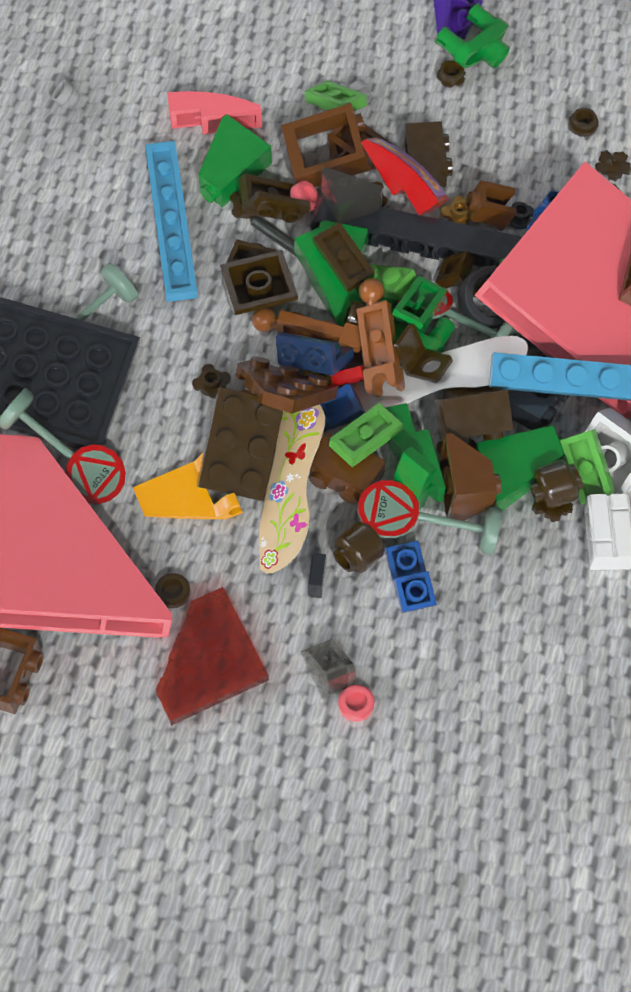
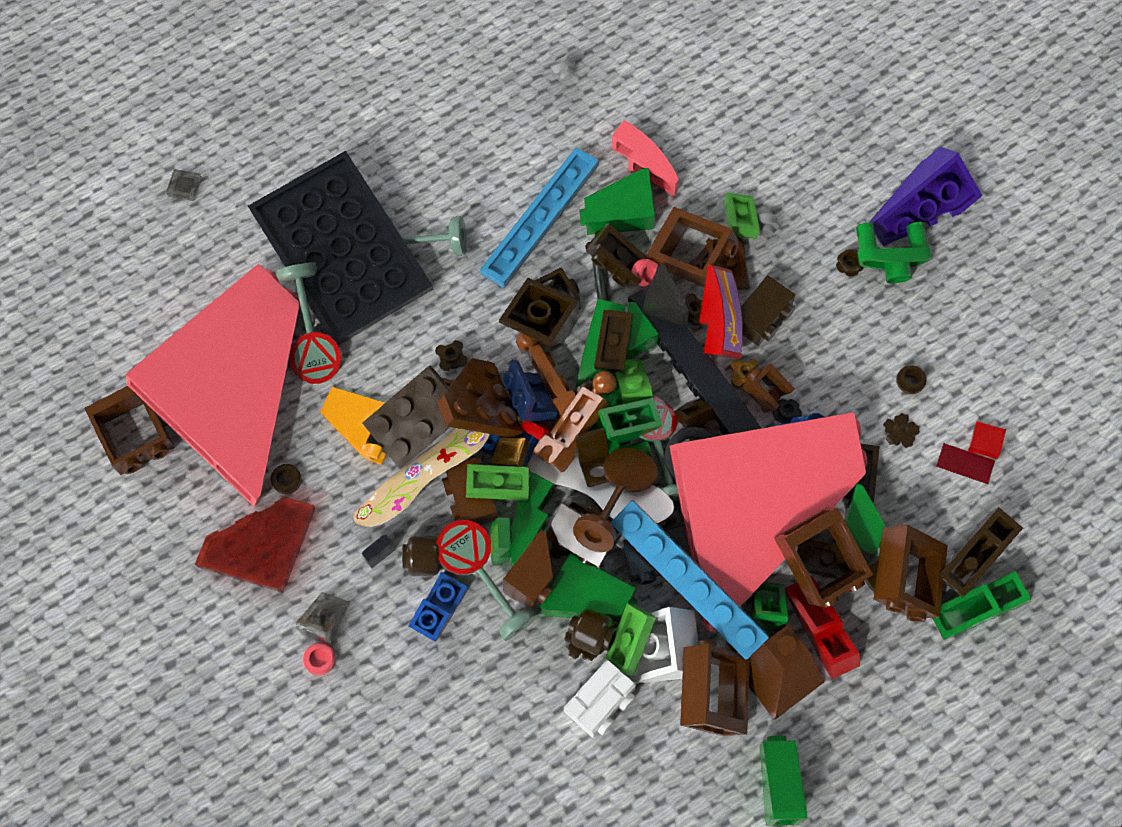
camera: 45 degrees right, 5 degrees up
(344, 409) = (510, 452): none -> pearl gold tile
(462, 342) = (627, 471): none -> reddish brown piece

